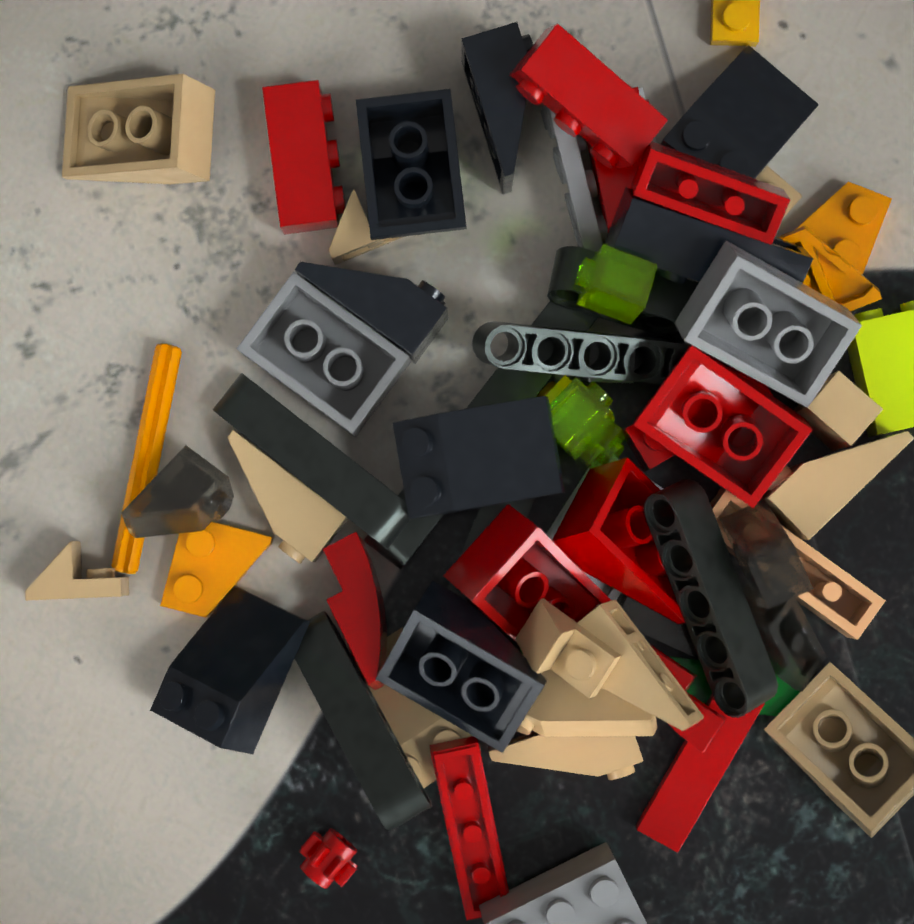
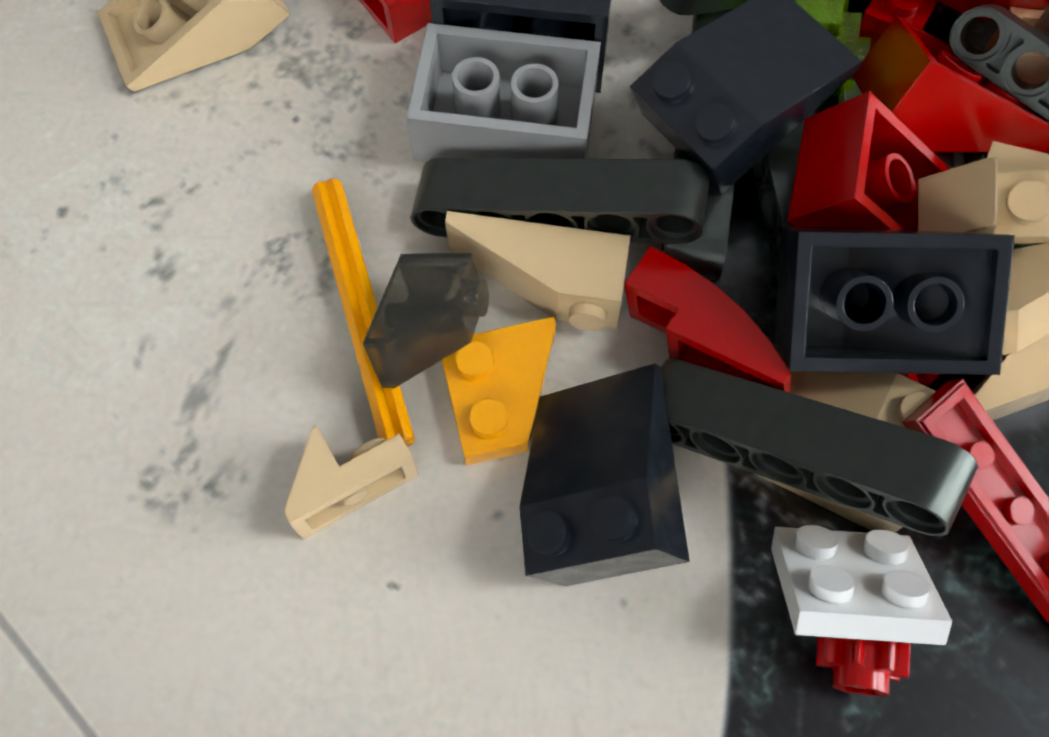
camera: 30 degrees left, 20 degrees down
(340, 822) = (858, 586): none -> white plate

